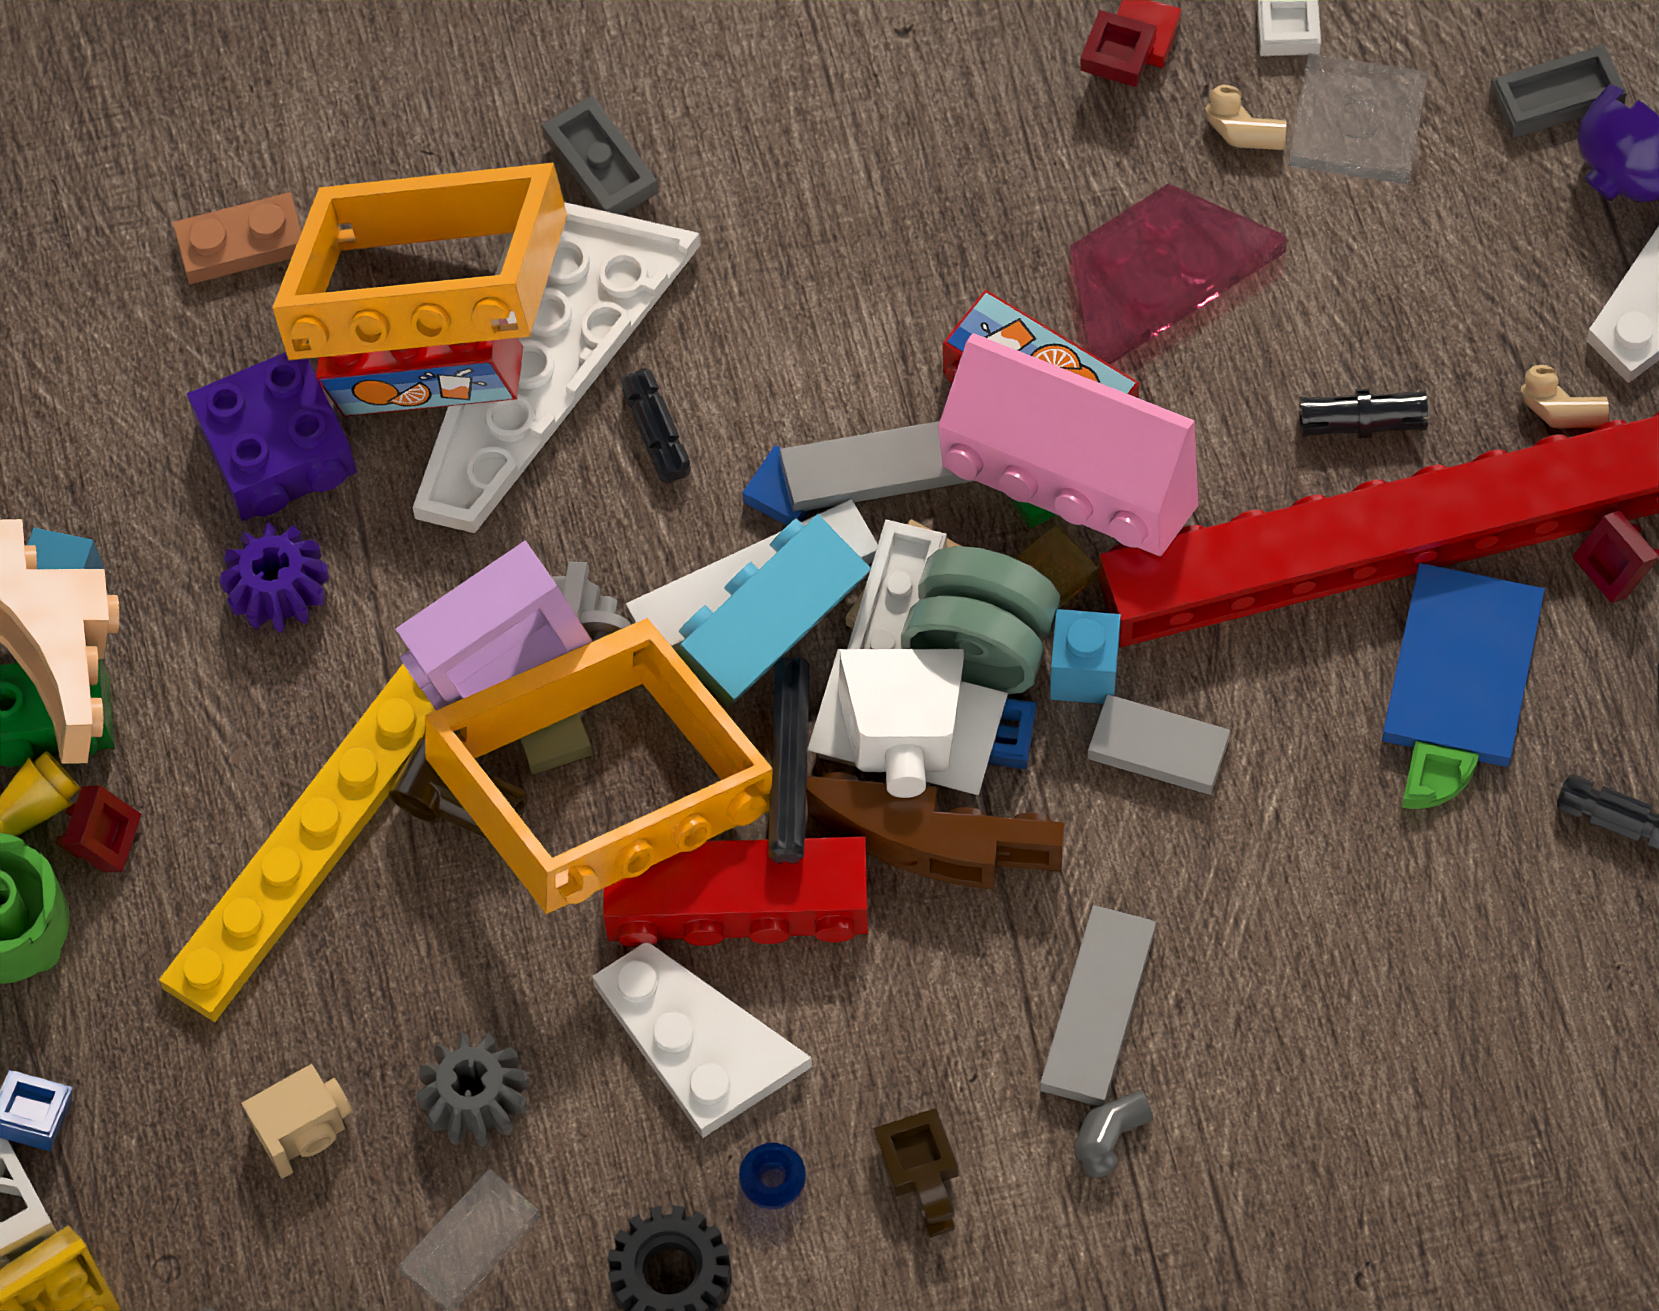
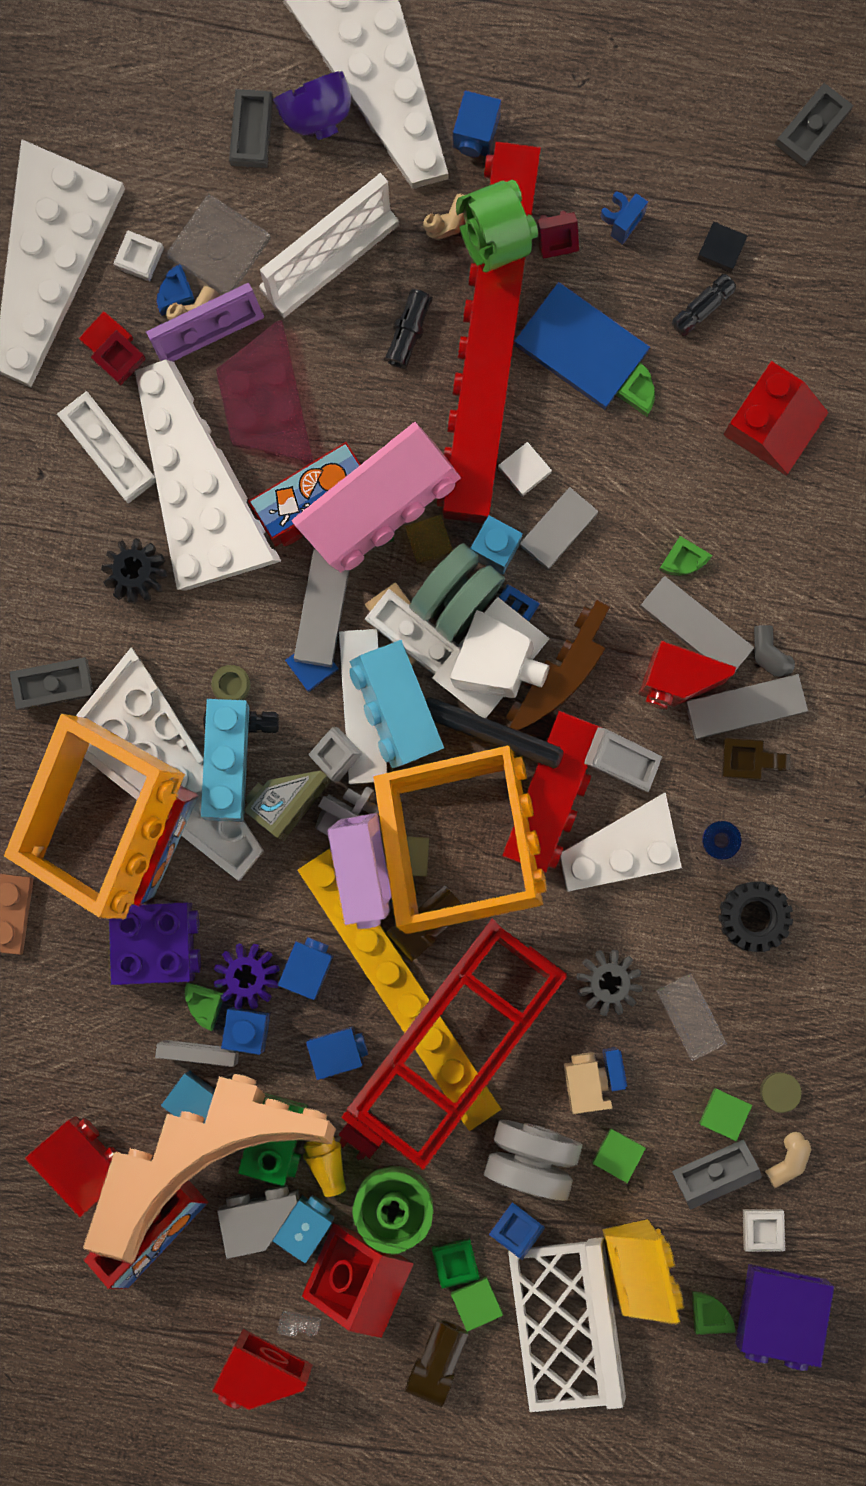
camera: 65 degrees left, 20 degrees up
(132, 557) = (196, 1053): none -> light grey tile
(147, 1070) = (531, 1165): none -> light grey wheel
(191, 605) = (246, 1030): none -> blue brick
(205, 1218) = (618, 1155): none -> bright green tile
(207, 543) = (203, 1004): none -> bright green tile
(207, 743) = (337, 1052): none -> blue brick
(268, 951) = (393, 1064): none -> red piece
(318, 653) = (306, 968): none -> blue brick
(339, 1150) = (614, 1069): none -> blue tile
(558, 522) = (285, 801): none -> olive slope
(581, 407) = (225, 760): none -> medium azure brick
(661, 565) = (335, 754): none -> light grey tile
(706, 392) = (231, 683): none -> olive tile
(814, 195) = (120, 571): none -> black gear
(832, 967) = (623, 759): none -> light grey tile
(972, 228) = (200, 497): none -> white wing
(983, 96) = (107, 447): none -> white tile
(995, 989) = (681, 675): none -> red slope
(1005, 1131) = (746, 706): none -> light grey tile
(1199, 946) = (684, 558): none -> bright green tile
(1227, 141) = (205, 323): none -> medium lavender tile
(1228, 660) = (524, 469): none -> white tile
(1263, 89) = (174, 290): none -> blue tile
(1432, 269) = (329, 247): none -> white fence
(1490, 986) = (777, 419): none -> red slope
(1563, 434) = (496, 225): none -> bright green brick

